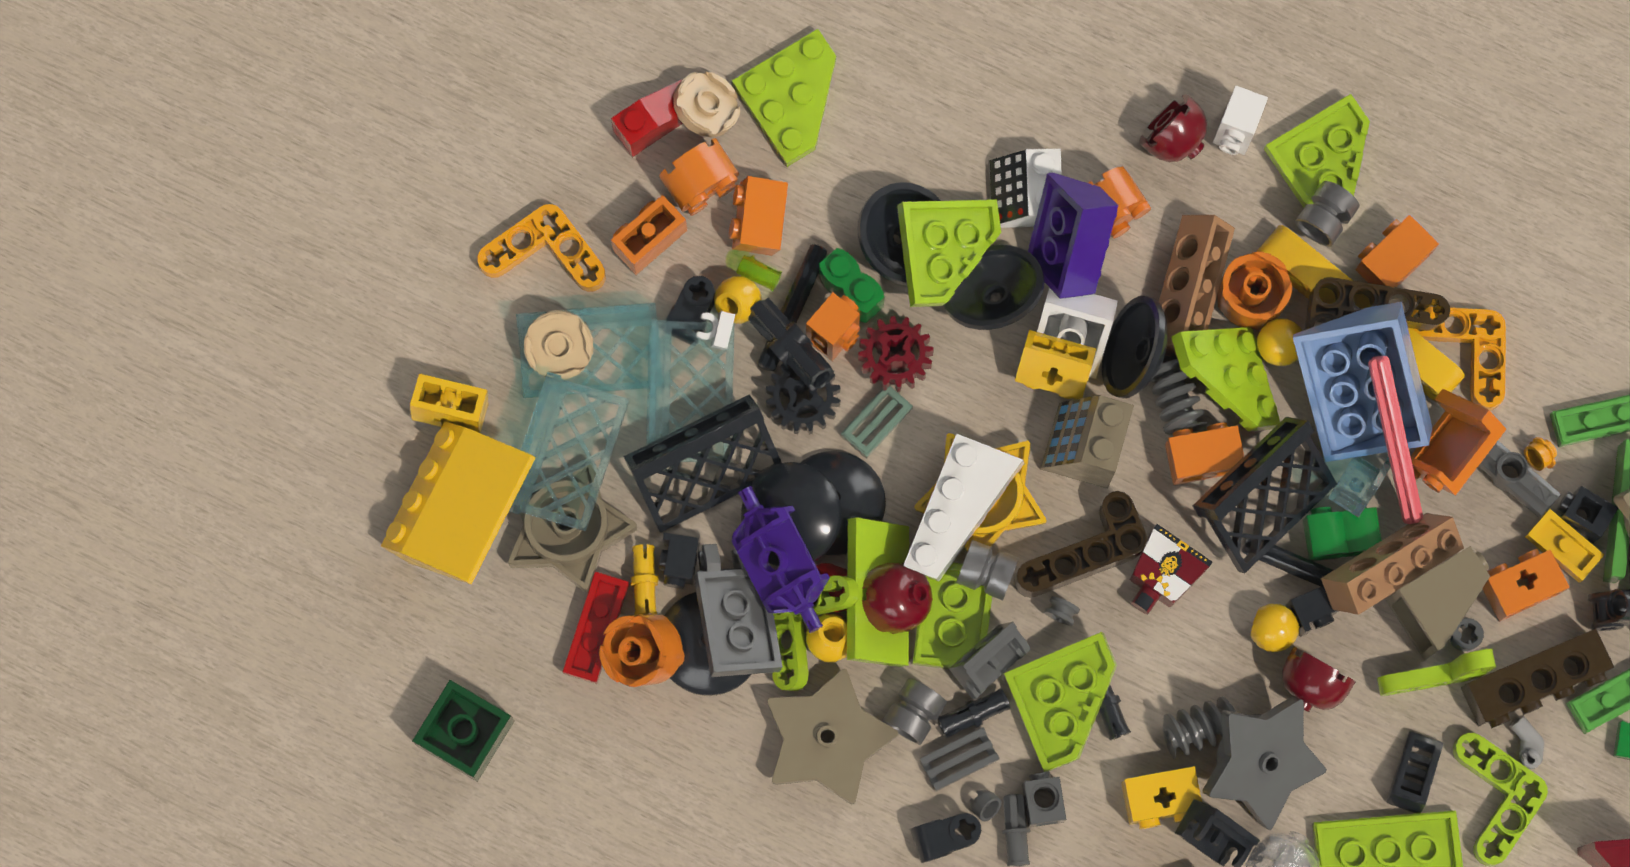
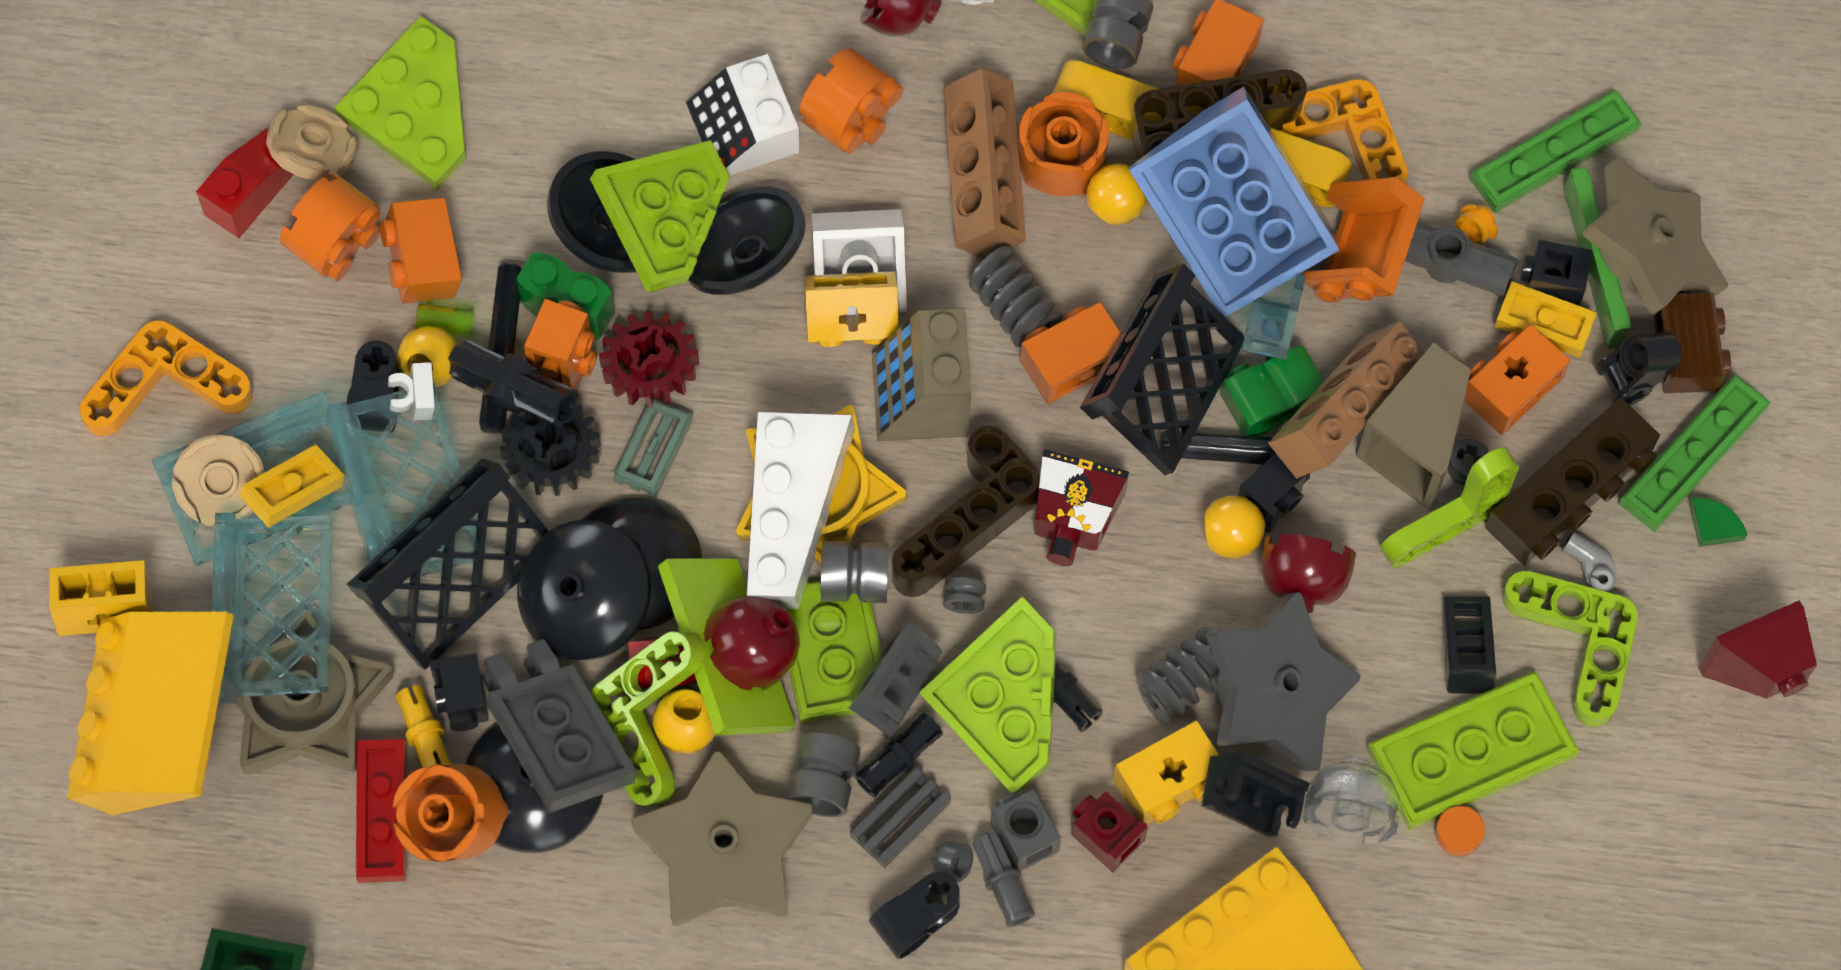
camera: 20 degrees left, 10 degrees down
(609, 367) = (292, 485): none -> yellow plate
(648, 234) = (290, 315): orange brick -> none
(797, 579) = (618, 654): dark purple plate -> none
(1072, 234) = (817, 142): dark purple slope -> none
(1103, 835) = (1107, 845): none -> dark red brick
(1134, 347) = (942, 248): black dish -> none
(1232, 371) = (1071, 243): lime plate -> none
(1395, 439) = (1297, 251): coral axle -> none

